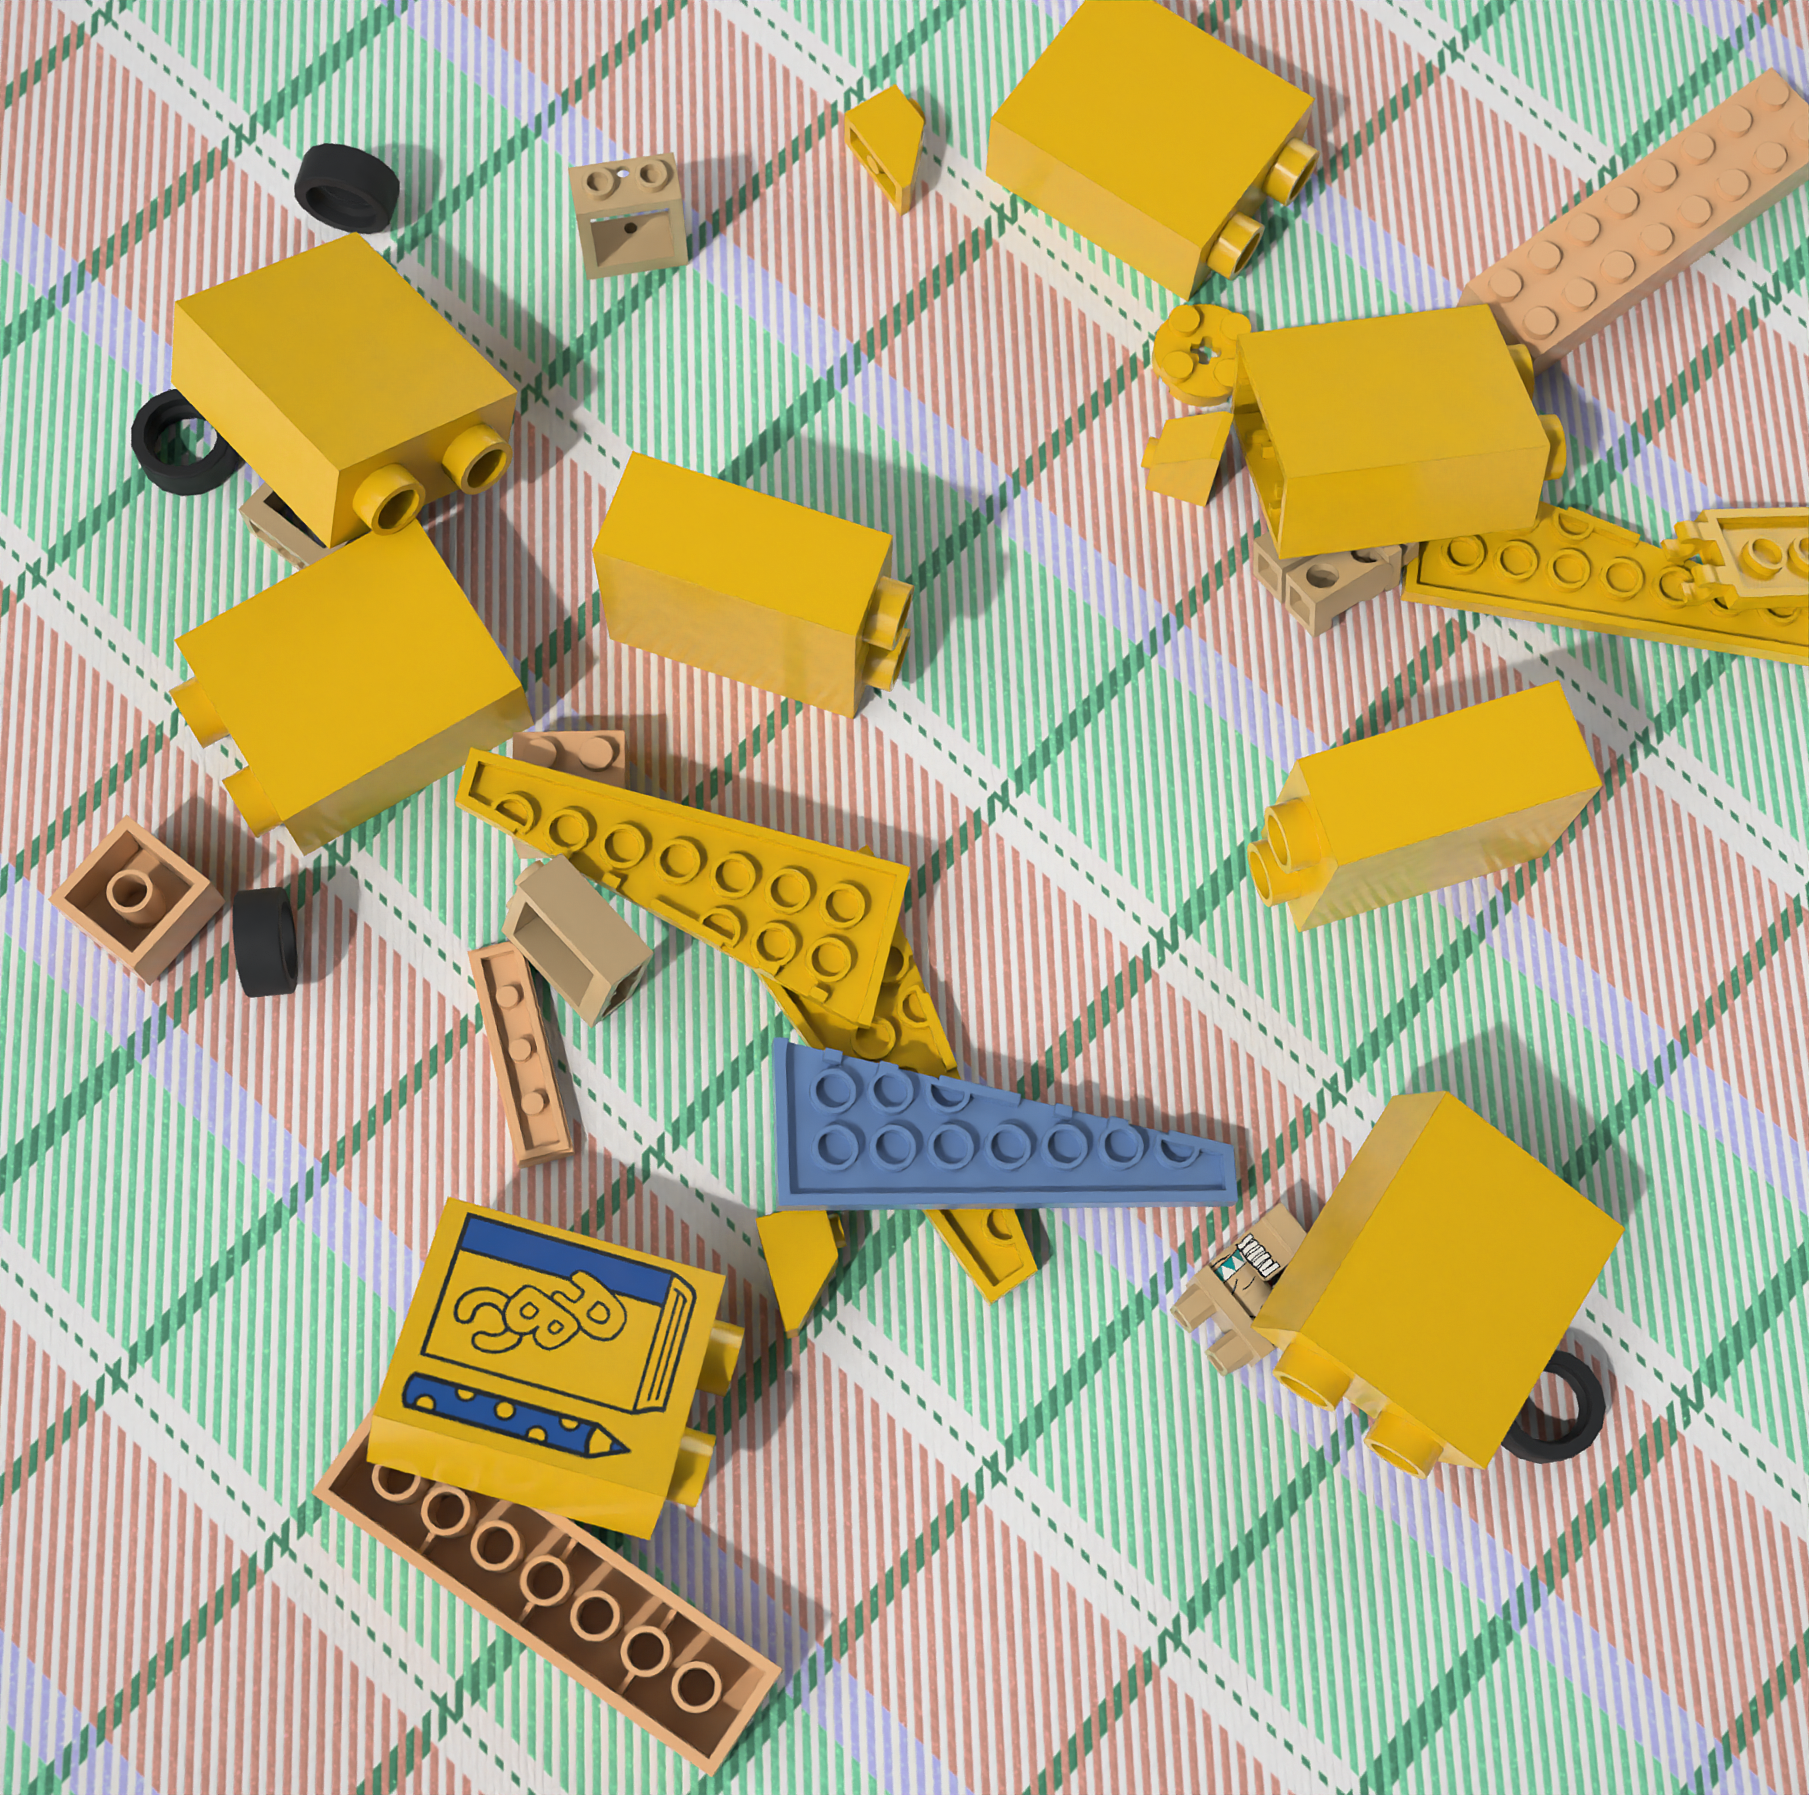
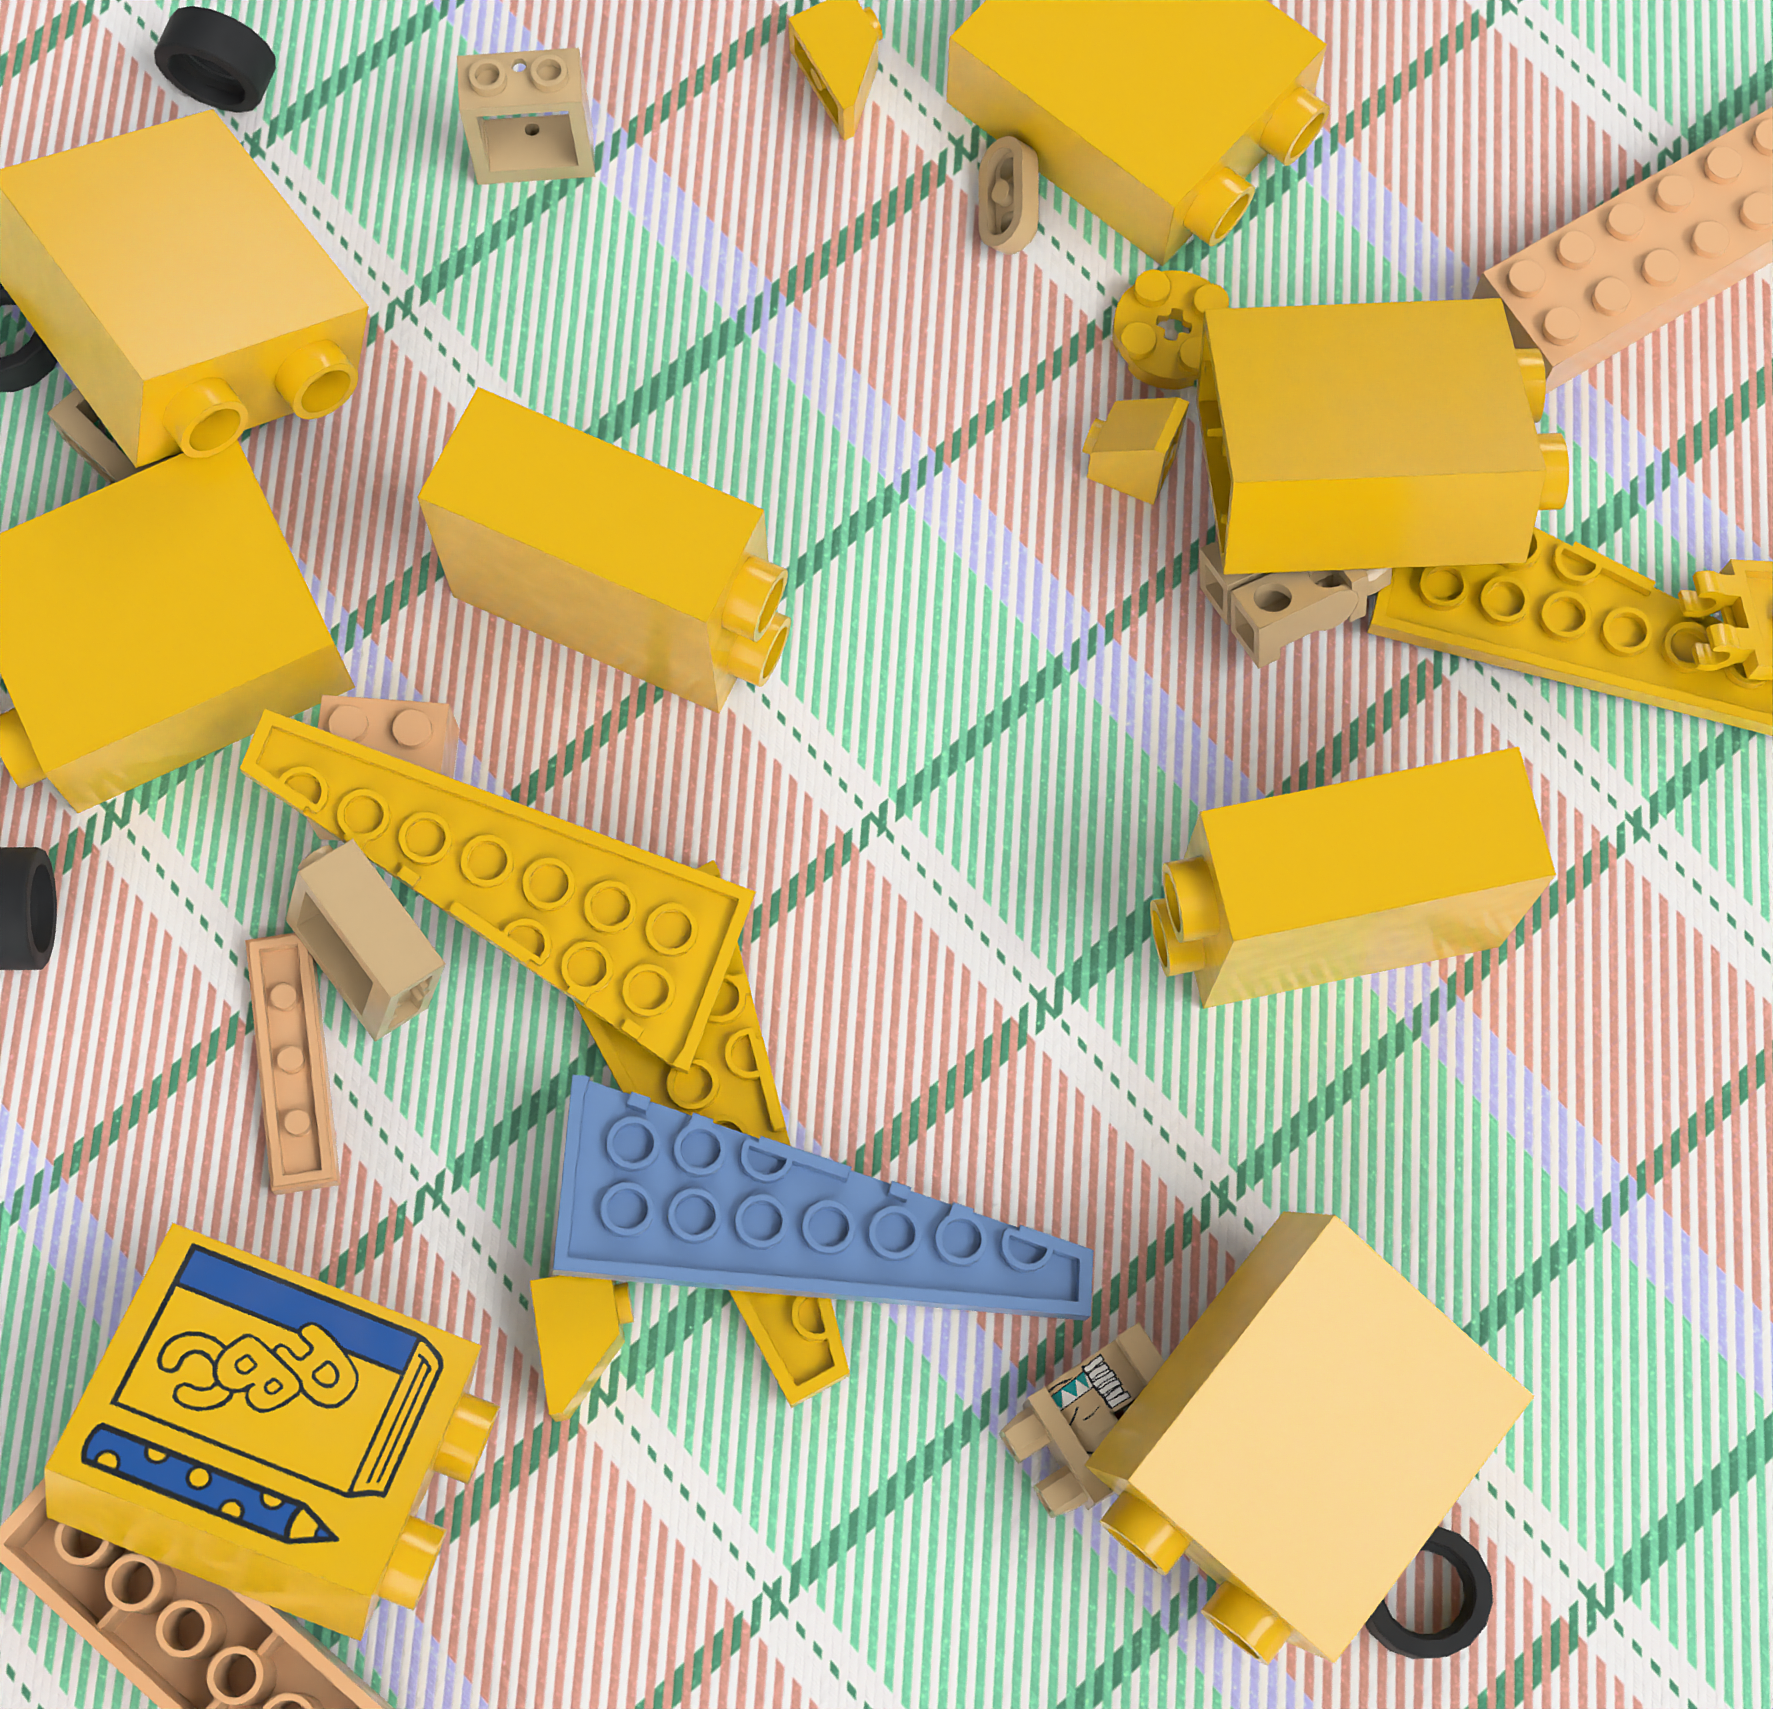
camera: 10 degrees right, 0 degrees up
(1050, 251) = (1008, 195): none -> tan plate

